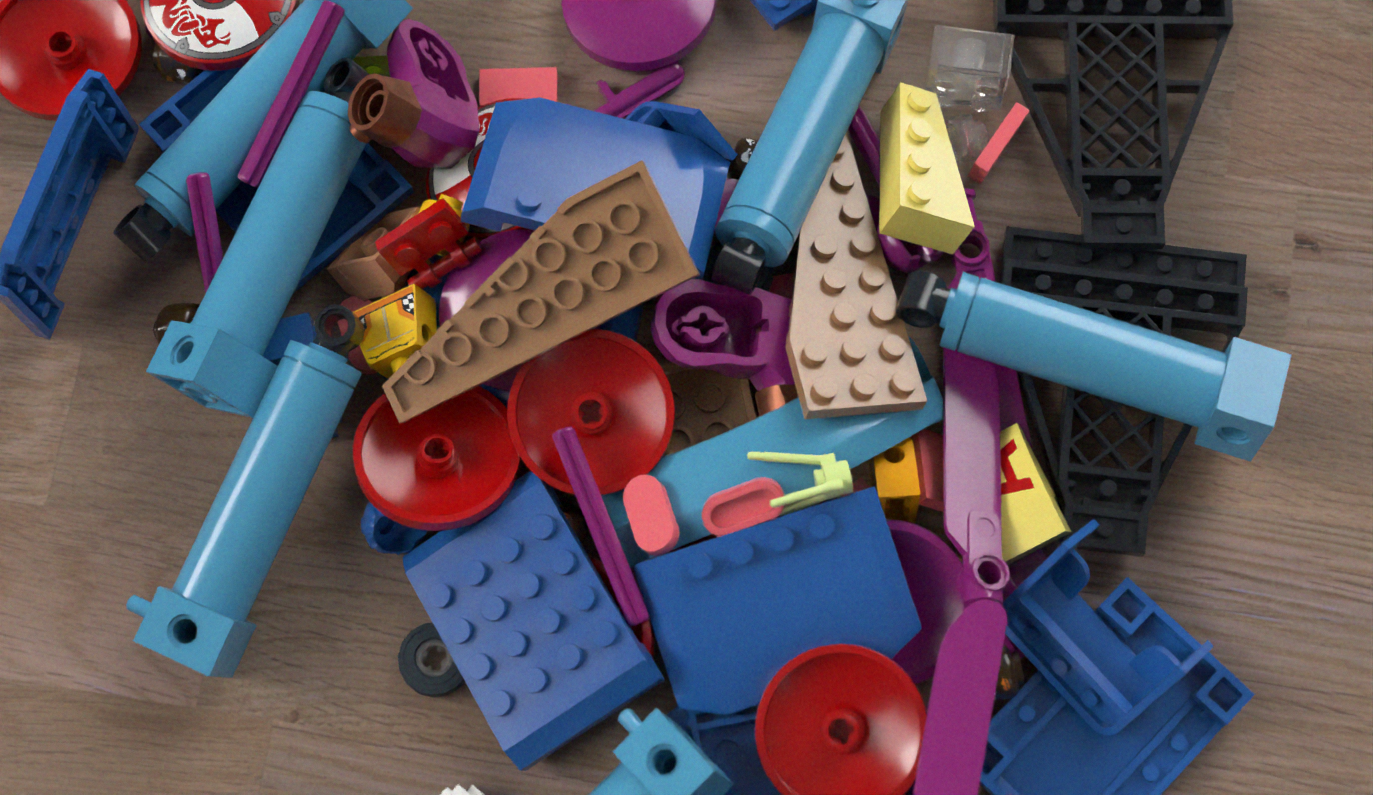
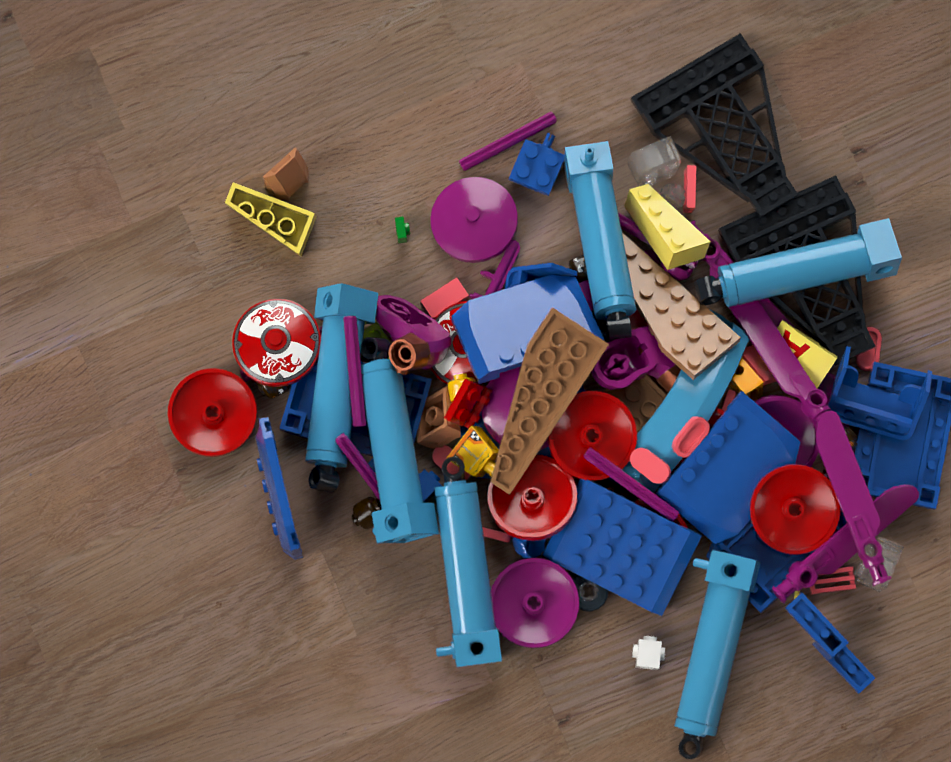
camera: 40 degrees left, 5 degrees up
(334, 622) = (534, 603): none -> magenta dish
(343, 474) = (497, 535): none -> coral tile
(830, 481) = (722, 401): yellowish green plant -> none
(1117, 567) = (866, 359): none -> coral tile

